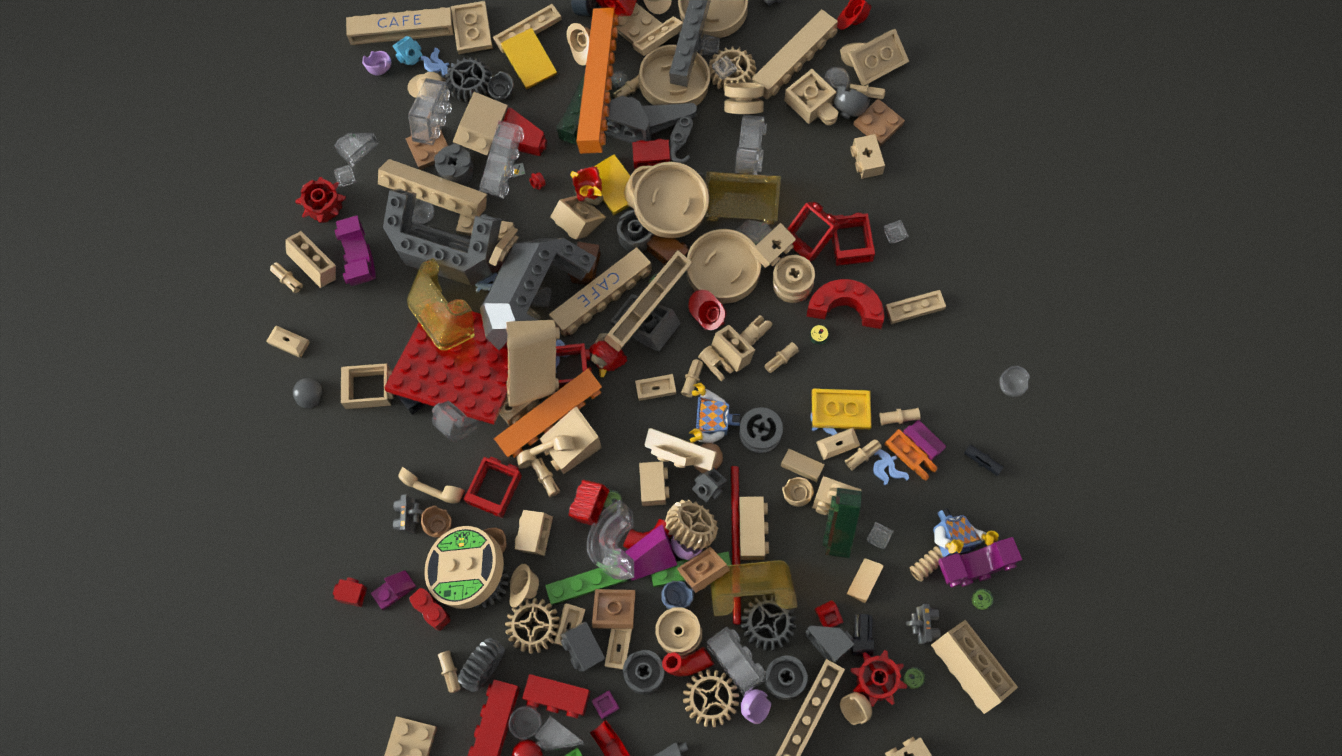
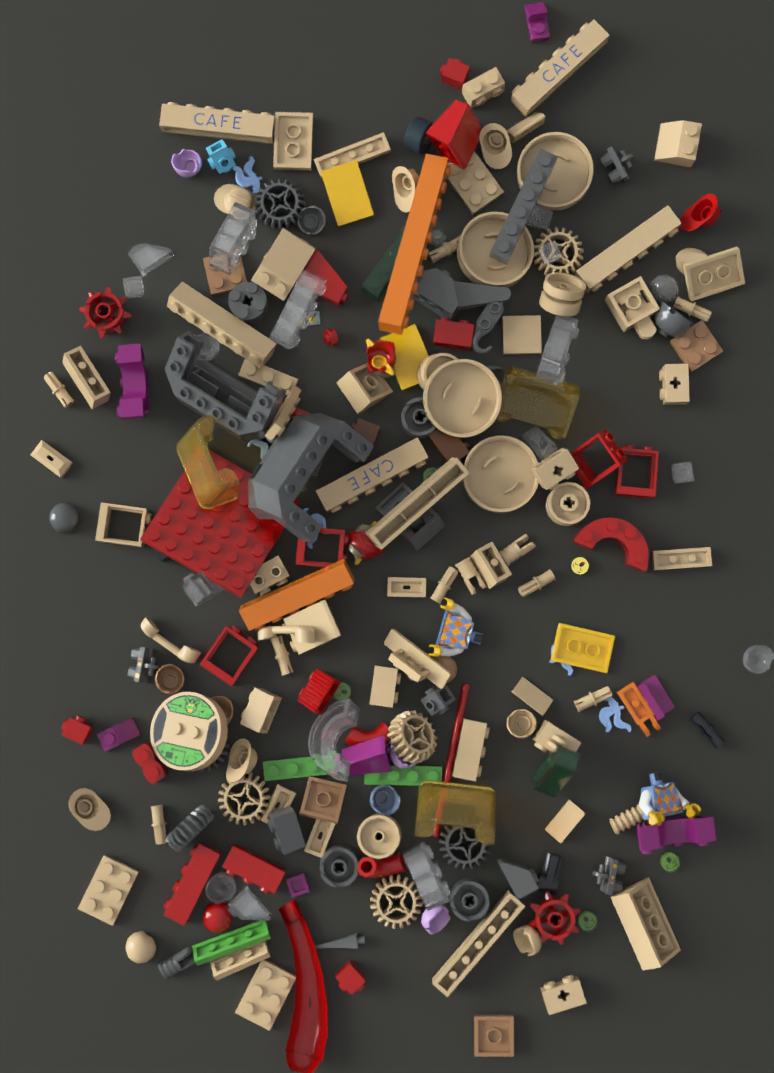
camera: 10 degrees right, 15 degrees up
(373, 668) = (89, 809): none -> tan piece
(531, 360) = (288, 549): tan windscreen -> none
(658, 36) = (488, 199): tan plate -> none
(703, 569) = (414, 784): medium nougat plate -> none
(707, 309) = (474, 519): red piece -> none
(715, 144) = (521, 335): none -> tan tile
(763, 417) = (506, 641): dark grey wheel -> none
(829, 448) = (561, 682): tan piece -> none
(829, 614) = (523, 845): red slope -> none
(880, 535) = (589, 781): clear tile -> none
(899, 416) = (637, 668): tan pin -> none

